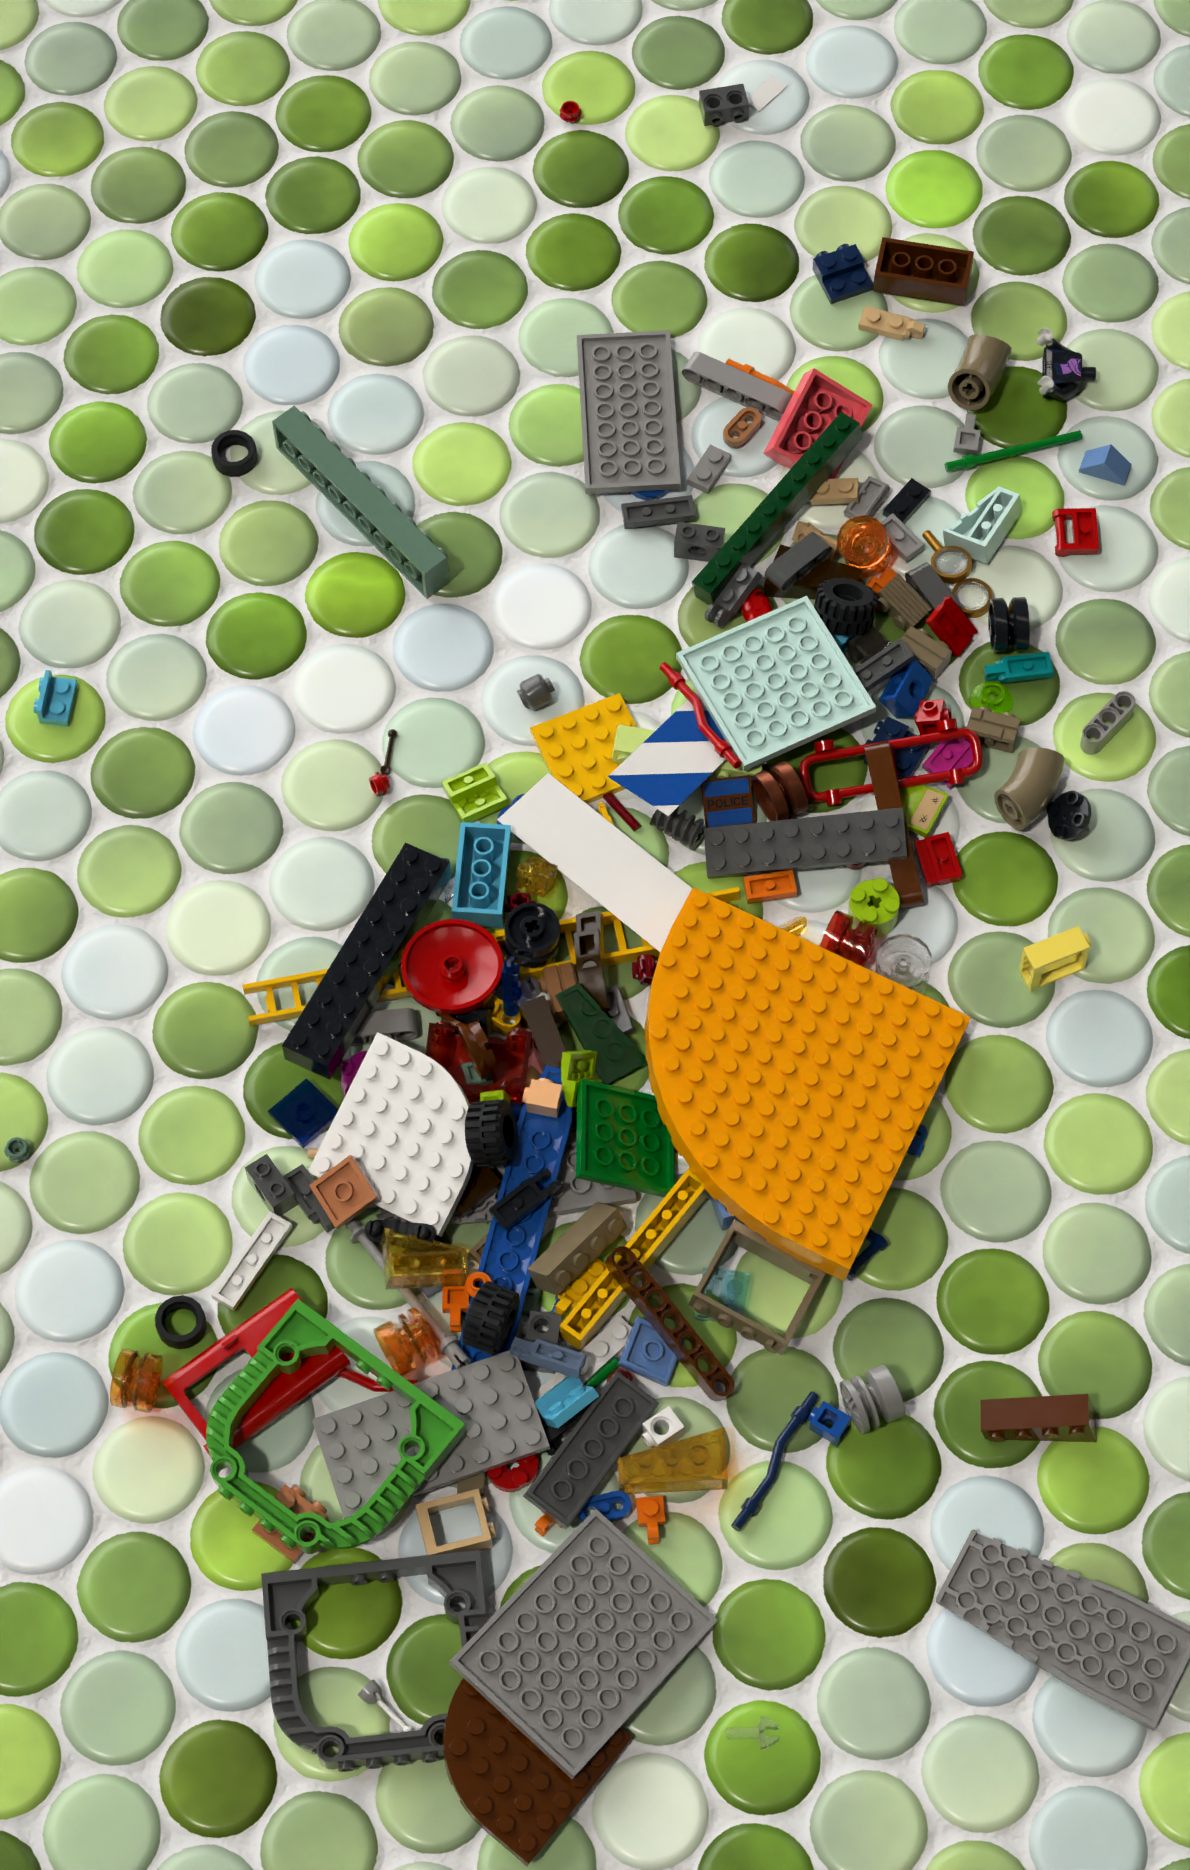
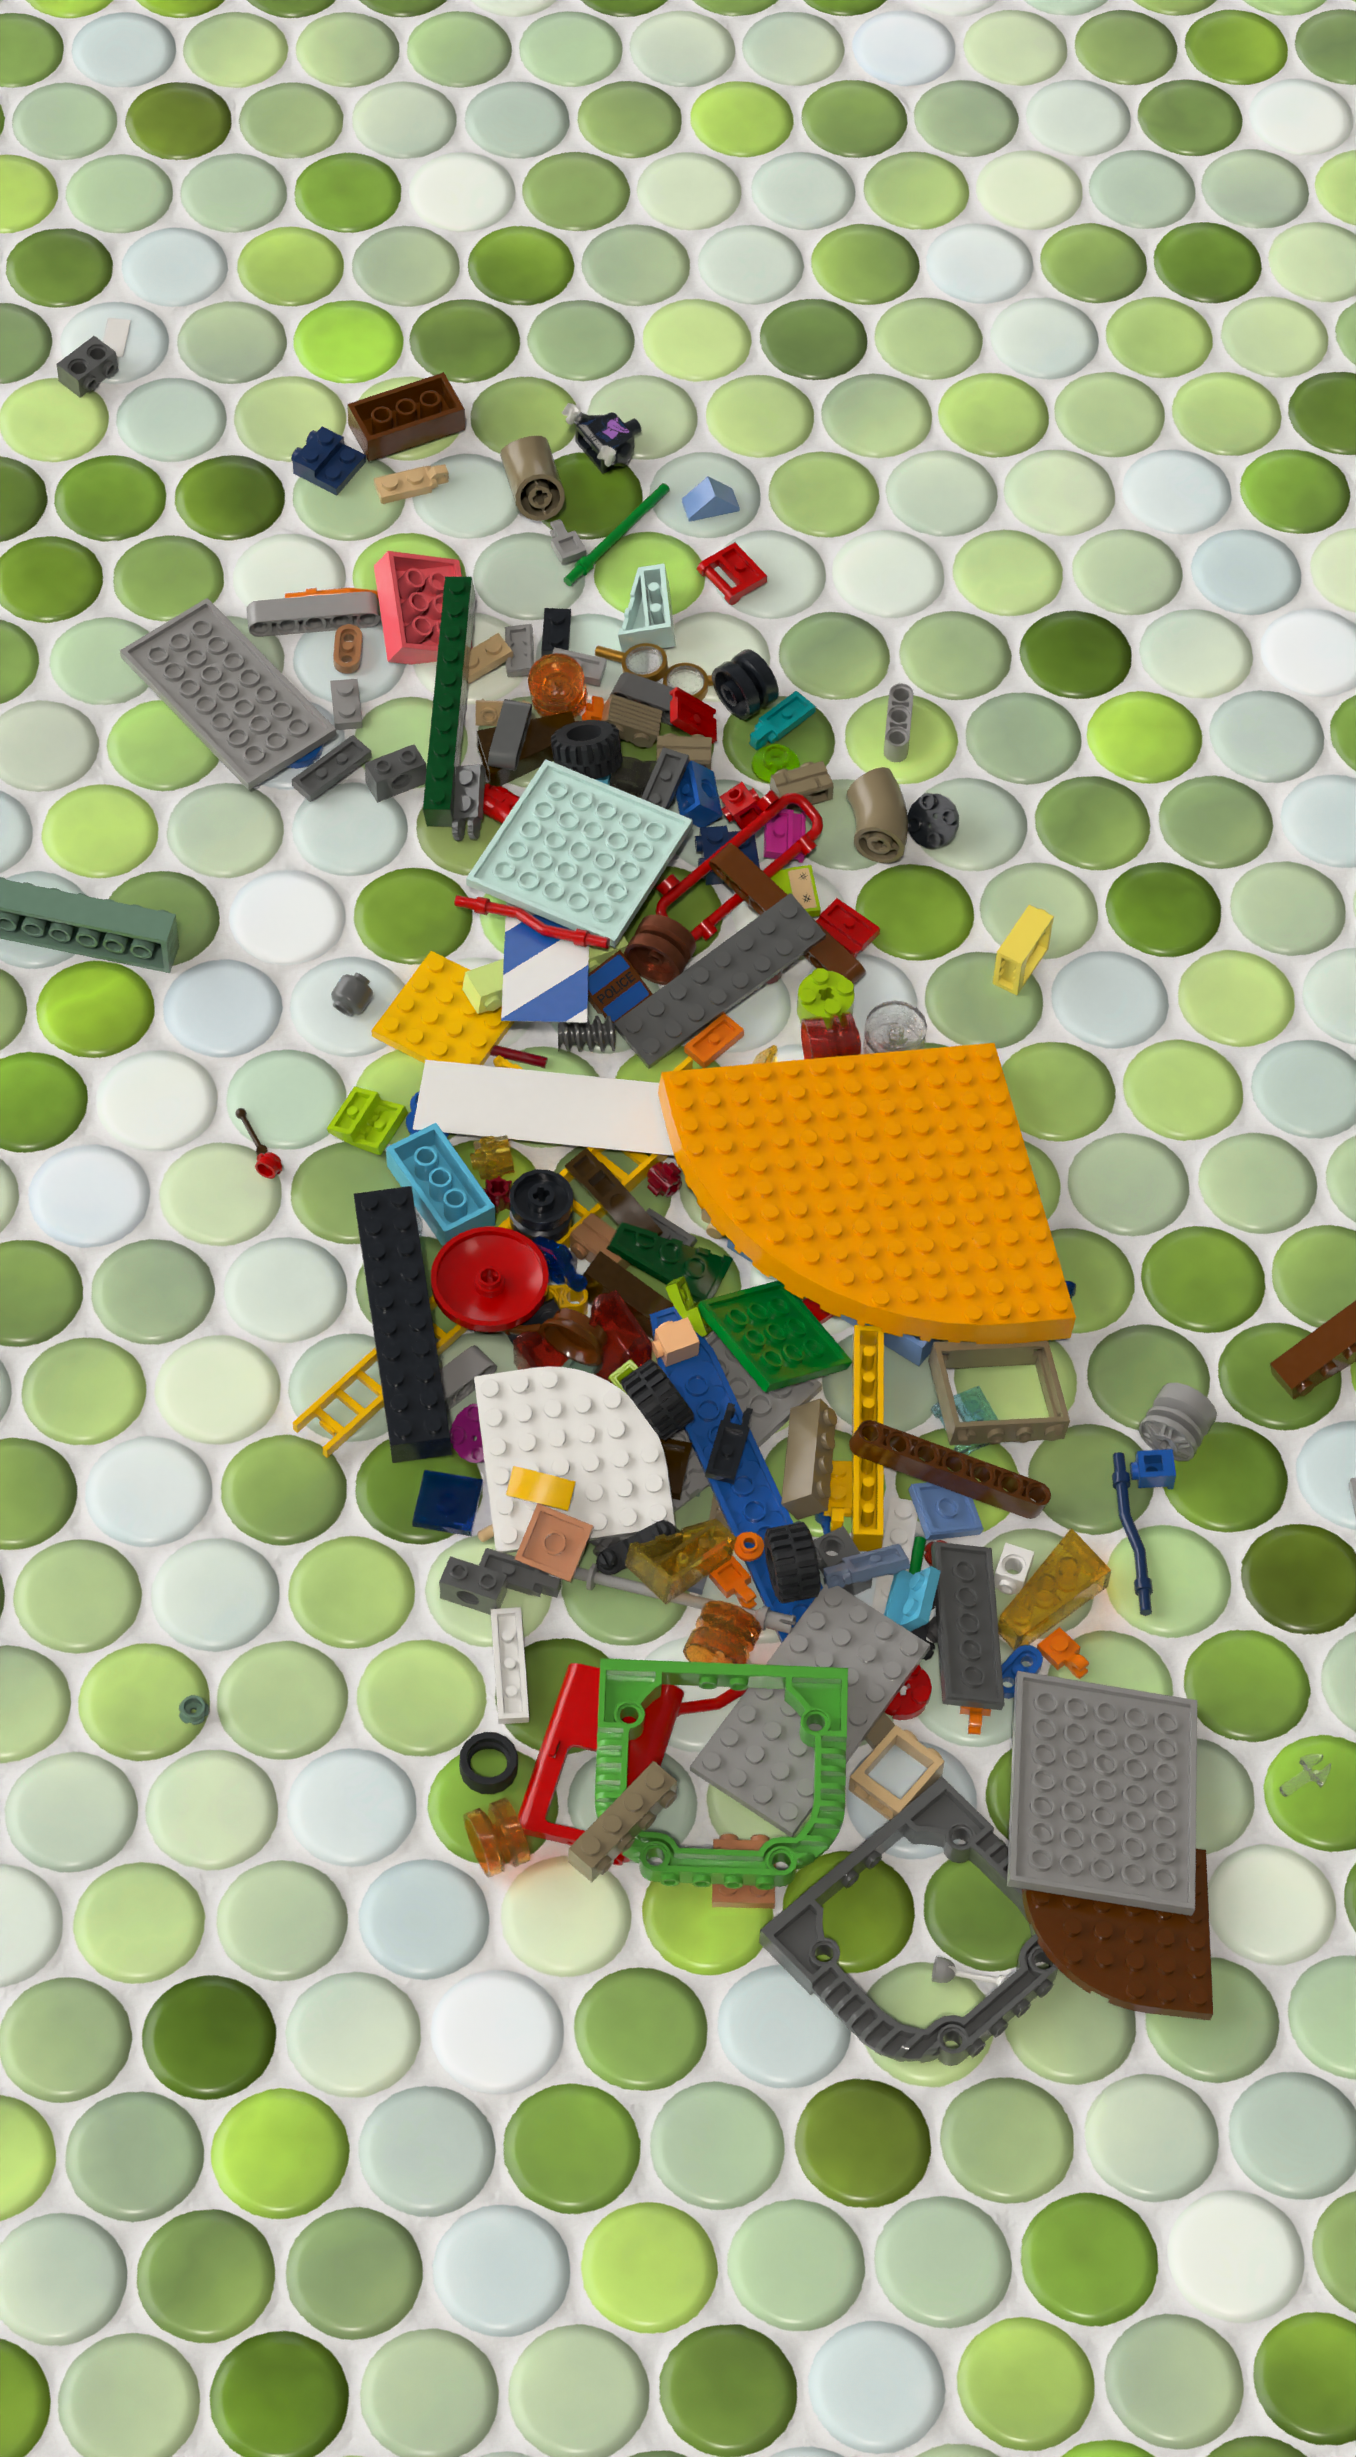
camera: 40 degrees left, 5 degrees down
(213, 1429) = (622, 1822): none -> dark tan brick
(360, 1145) = (540, 1488): none -> yellow slope

